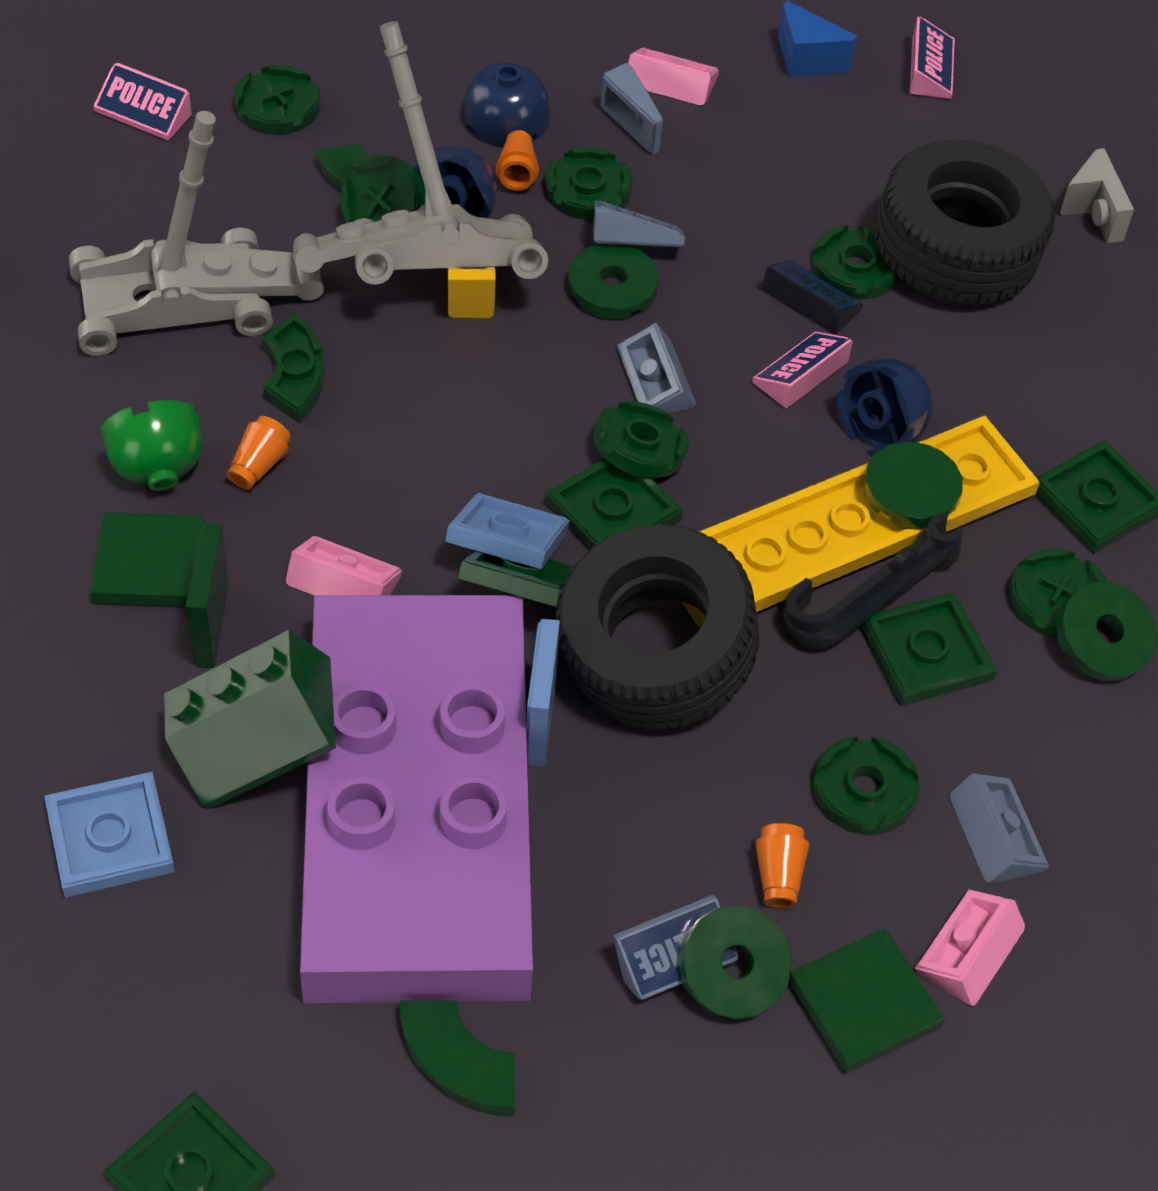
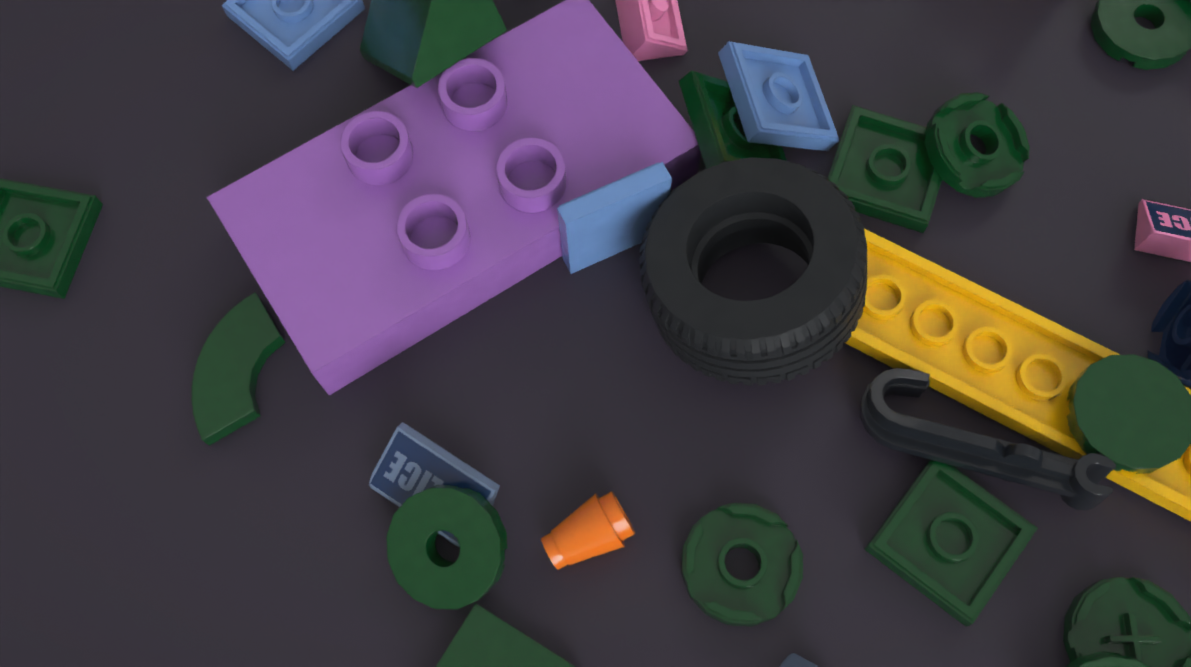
camera: 65 degrees right, 15 degrees up
(656, 370) = (1074, 117): sand blue slope -> none

